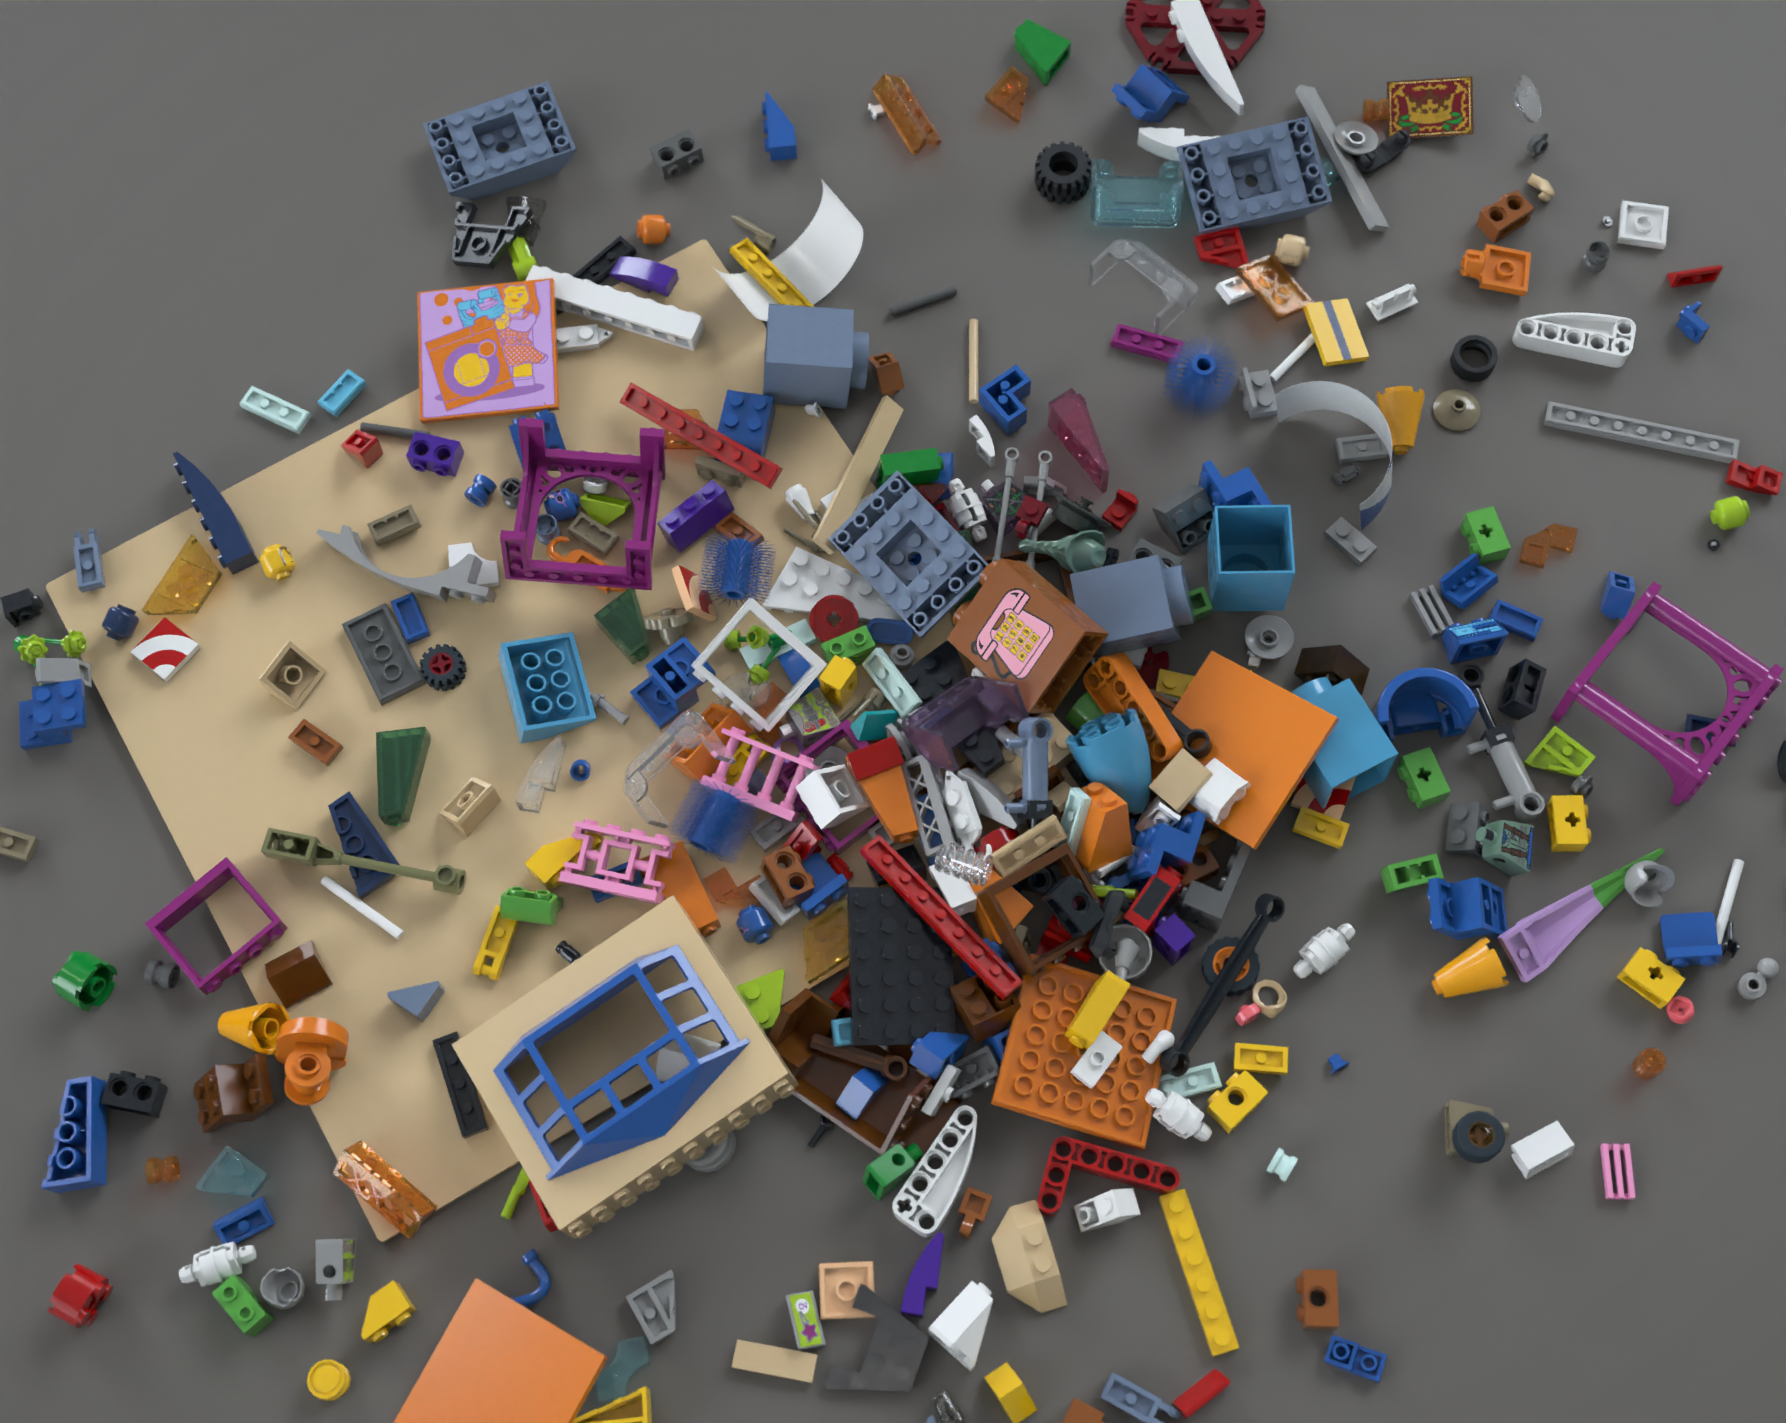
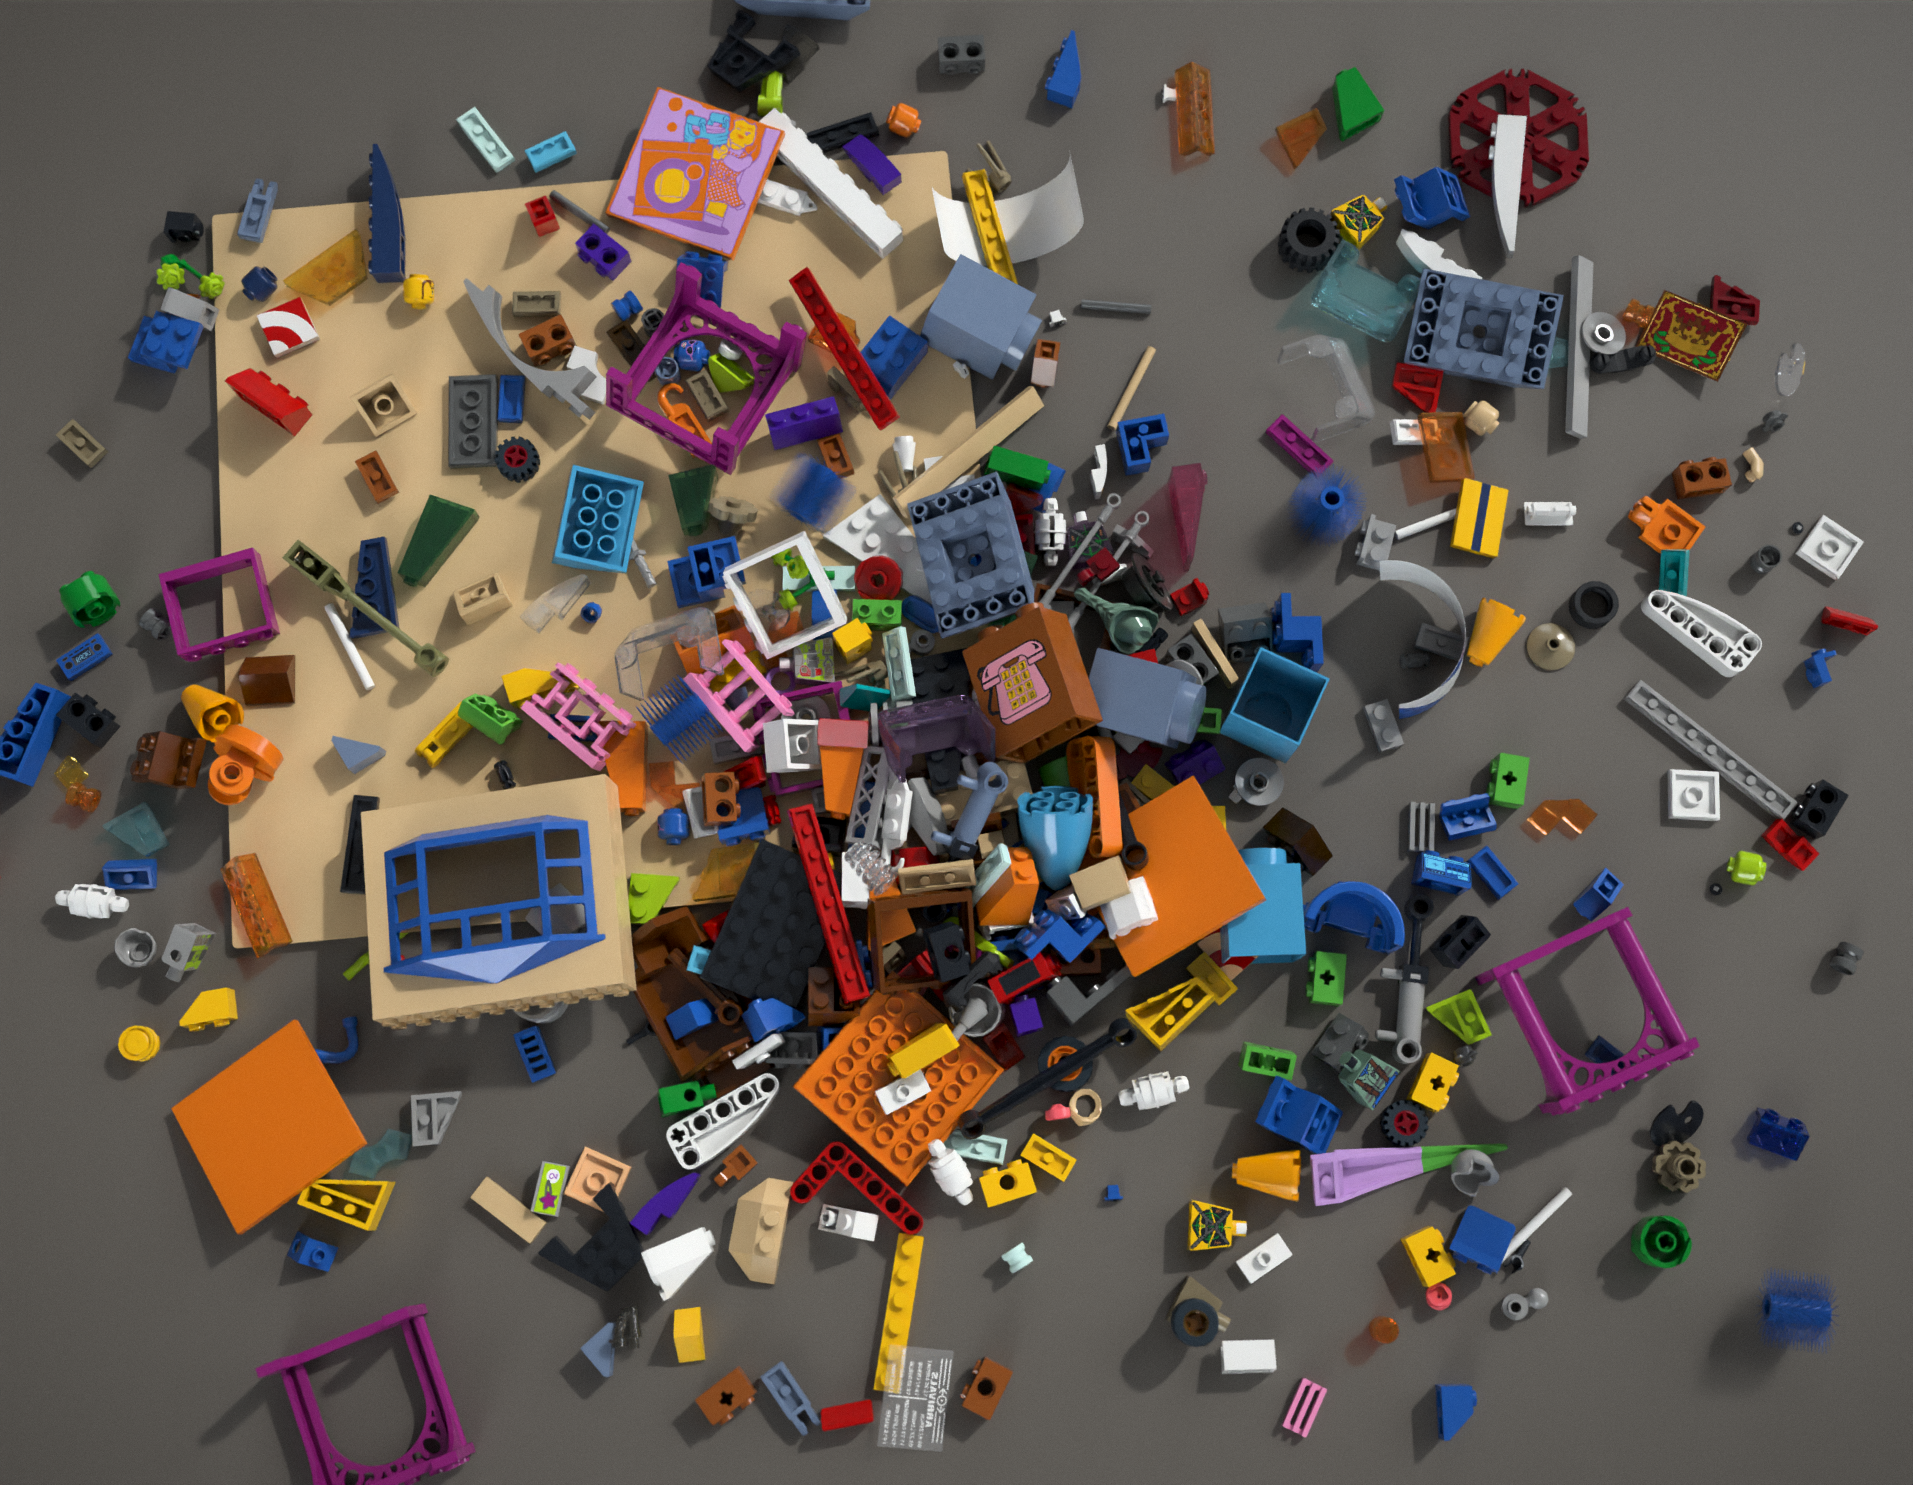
camera: 20 degrees right, 10 degrees up
(102, 1039) = (84, 657): none -> blue tile
(137, 1153) = (70, 772): none -> clear yellow slope
(180, 719) = (270, 399): none -> red slope
(243, 1305) = (97, 946): bright green brick -> none
(416, 548) = (545, 335): none -> dark orange brick
(494, 519) = (627, 343): none -> dark brown hinge
(692, 595) = (760, 502): light nougat tile -> none
(707, 1186) = (519, 1037): none -> blue slope
(876, 333) = (1056, 319): none -> white piece
(1097, 136) = (1359, 219): none -> torso
(1161, 1043) = (968, 1103): white arm -> none
(1165, 978) = (1003, 1047): none -> clear red slope
(1191, 559) = (1214, 653): none -> tan tile
(1203, 640) = (1198, 760): none -> dark purple bracket
(1257, 1344) = (915, 1398): none -> clear sticker
(1302, 871) = (1170, 1013): none -> yellow wedge
(1355, 1359) = (992, 1451): blue slope -> none
(1443, 1047) = (1212, 1226): none -> torso
(1449, 66) = (1734, 302): none -> dark red wing
(1505, 1054) = (1263, 1258): none -> white plate
(1525, 298) = (1674, 570): none -> teal slope
(1568, 864) = (1413, 1121): none -> black wheel
(1649, 475) = (1693, 795): none -> white tile
(1751, 1103) = (1453, 1407): none -> blue slope
(1766, 437) = (1823, 812): none -> black brick

